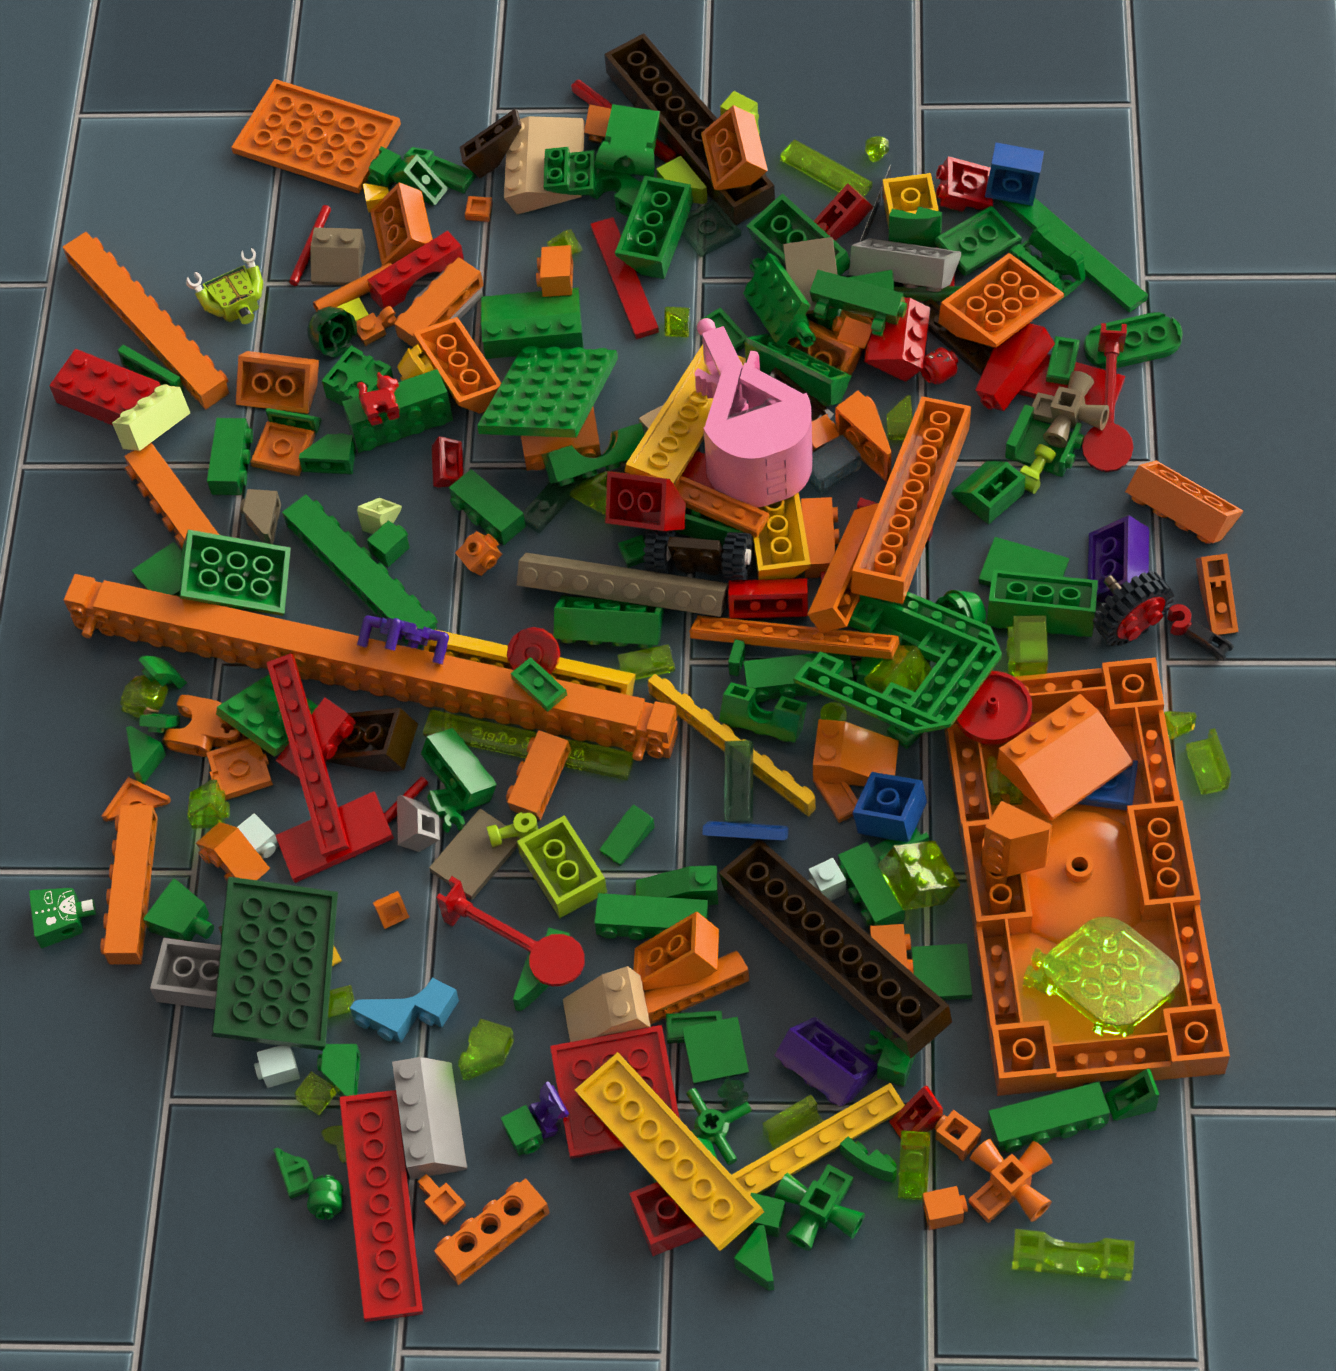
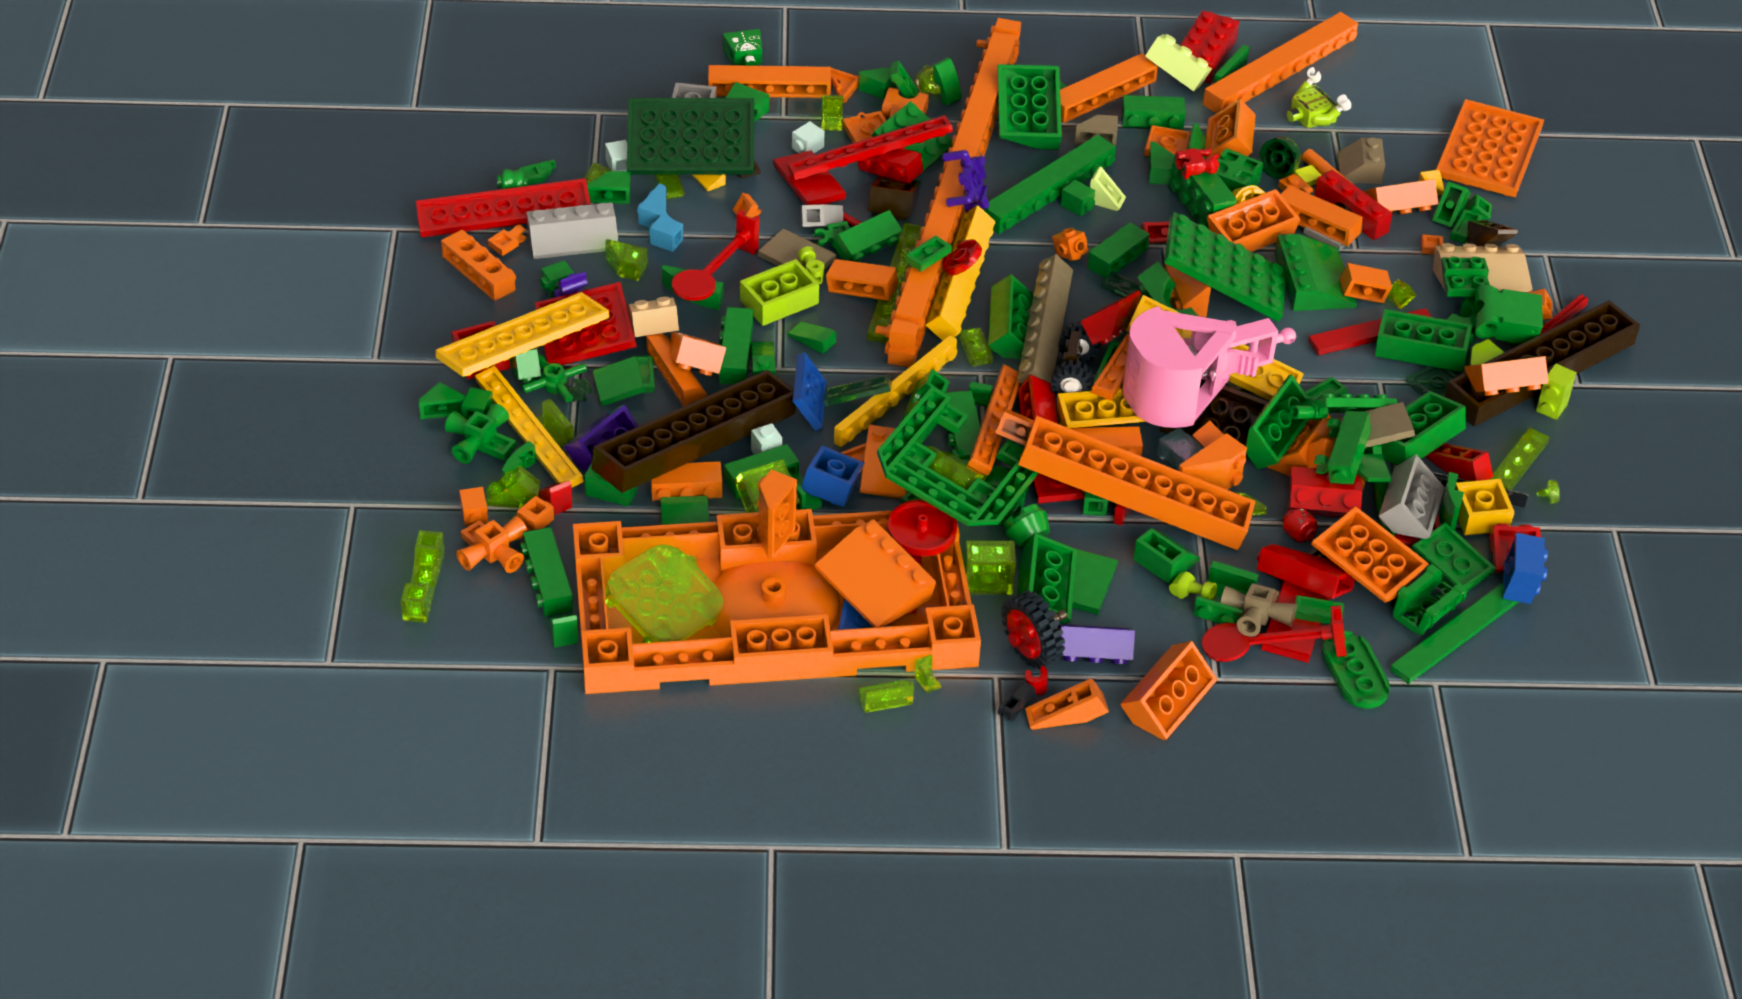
camera: 80 degrees right, 15 degrees down
(230, 850) = (785, 120): orange brick -> none
(306, 252) = (1387, 152): red bar -> none
(382, 167) = (1463, 180): green brick -> none
(677, 322) = (1326, 361): clear neon green slope -> none

